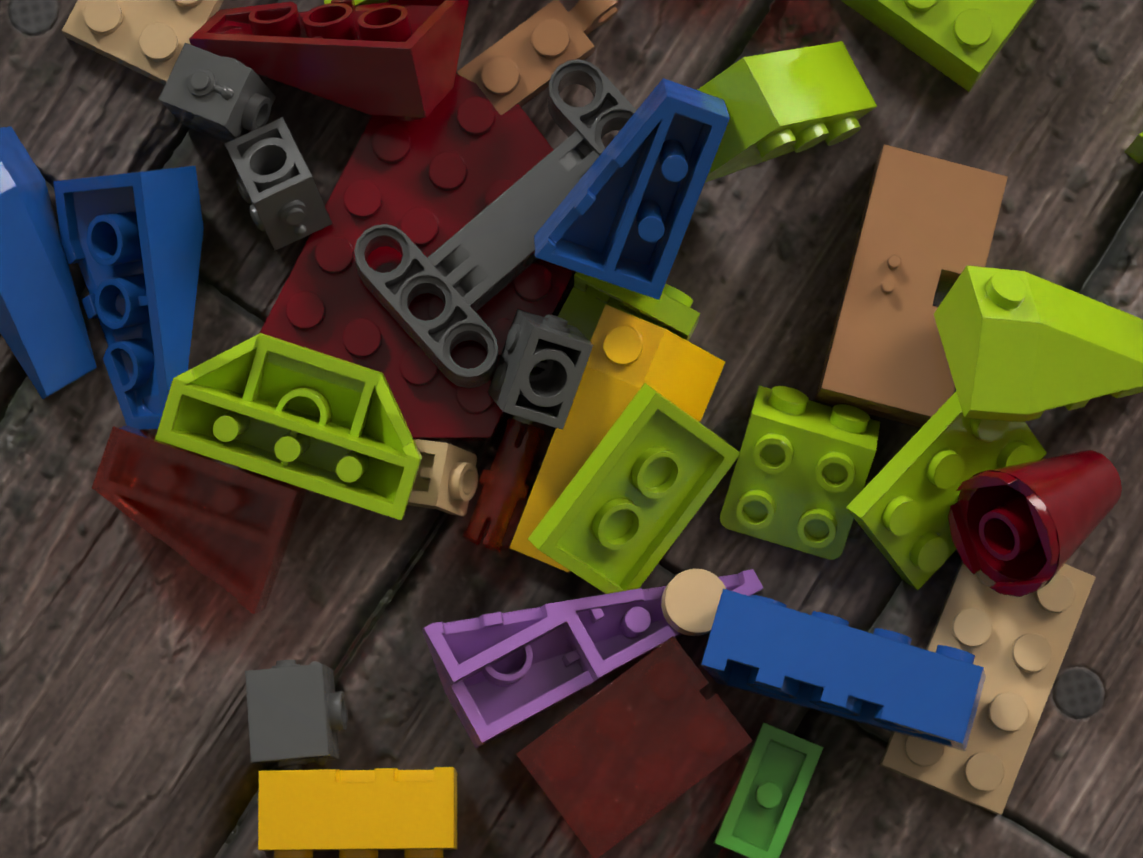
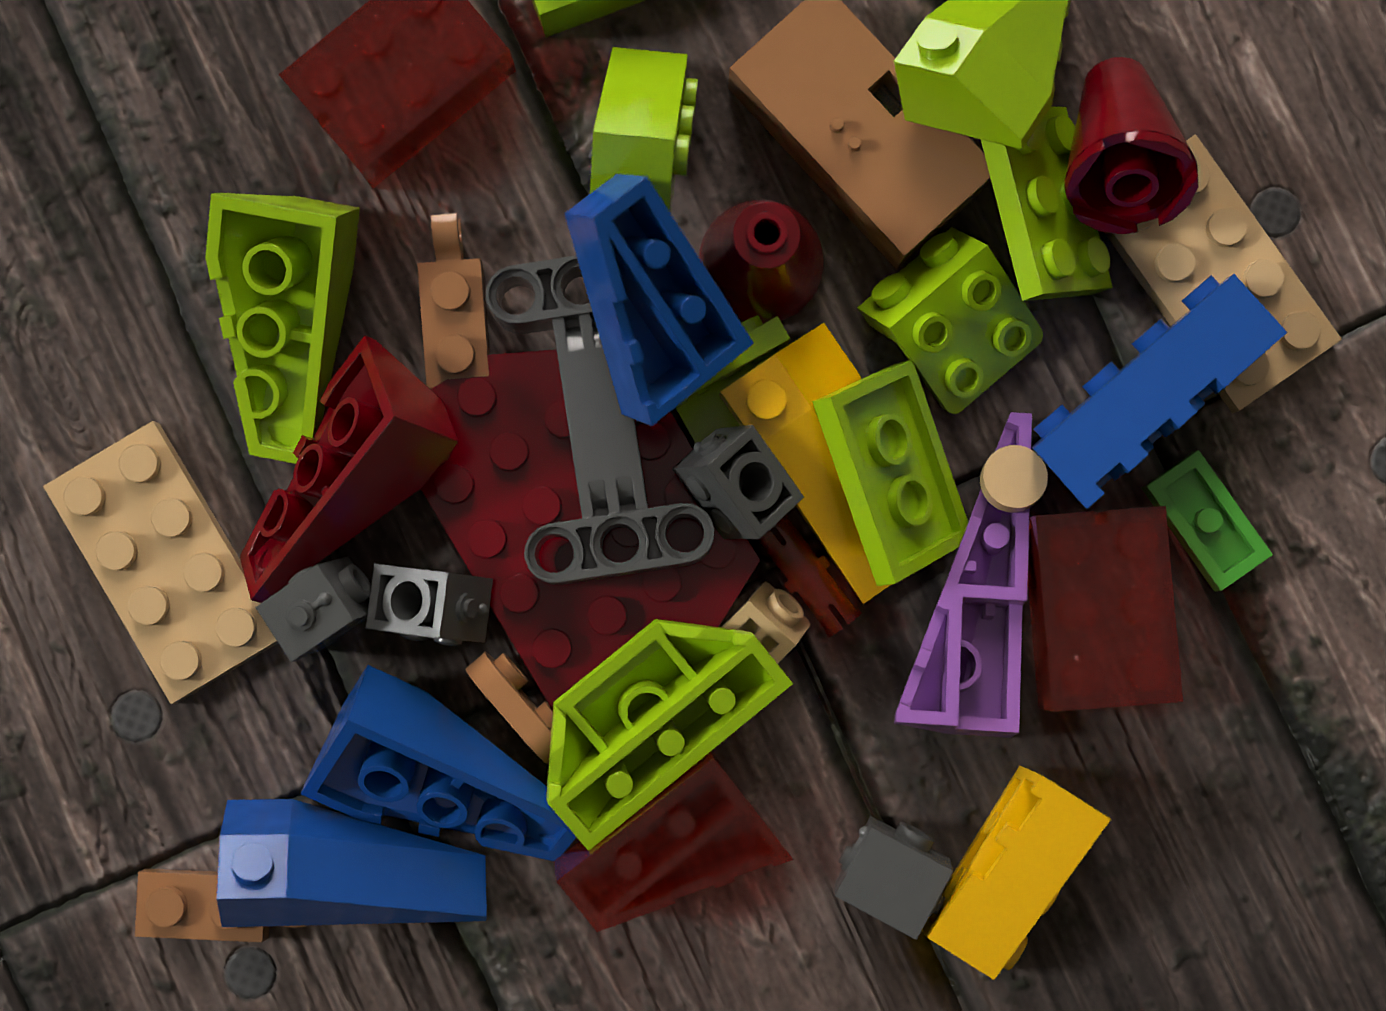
camera: 55 degrees left, 5 degrees up
(247, 288) = (501, 684): none -> medium nougat plate
(745, 280) = (763, 259): none -> dark red cone

